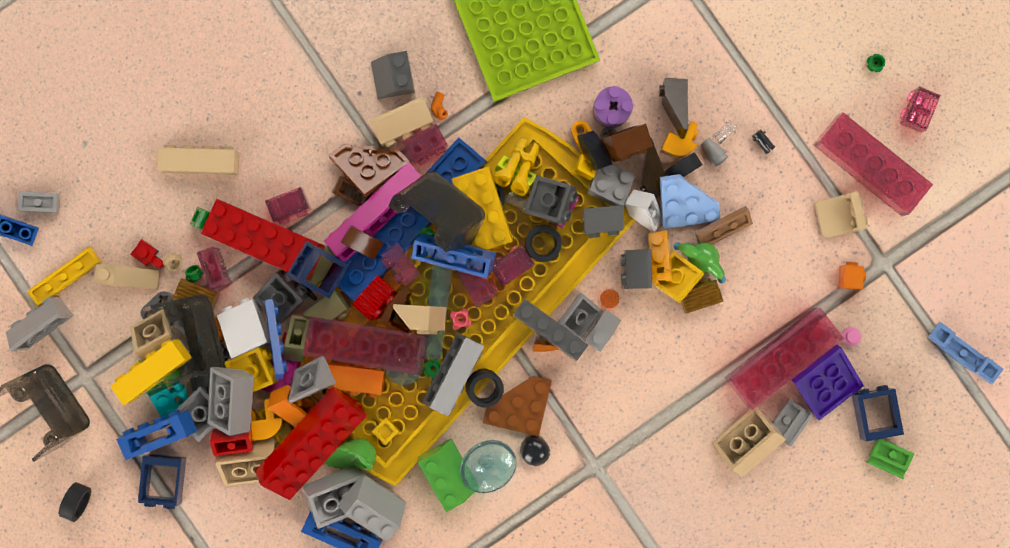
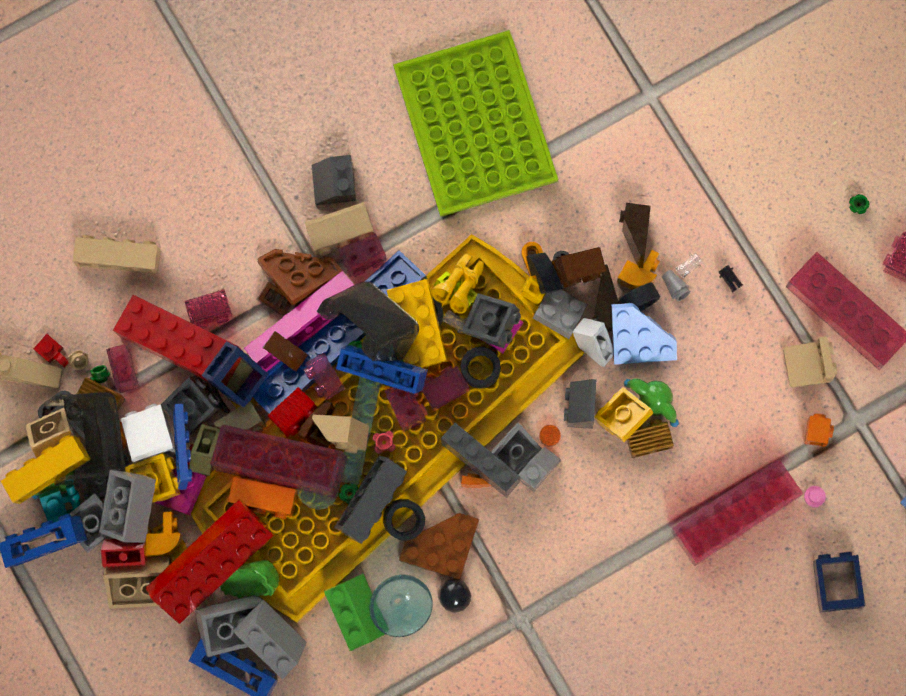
camera: 20 degrees right, 10 degrees down
(162, 460) = (28, 572): dark blue window -> none
(199, 218) = (111, 315): green tile -> none
(290, 412) = (189, 517): orange brick -> none
(310, 379) = (216, 492): light grey slope -> none
(385, 431) = (291, 556): yellow plate -> none
(437, 107) = (378, 216): orange arm -> none
(603, 220) = (546, 346): dark grey slope -> none
(612, 96) = (570, 219): medium lavender brick -> none
(661, 256) = (607, 392): light orange plate -> none
(725, 226) = (682, 366): medium nougat plate -> none
(748, 441) = (692, 601): tan slope -> none
(791, 421) = (740, 585): light grey plate -> none
(827, 382) = (783, 542): dark purple plate -> none
(890, 458) = (850, 634): bright green plate -> none

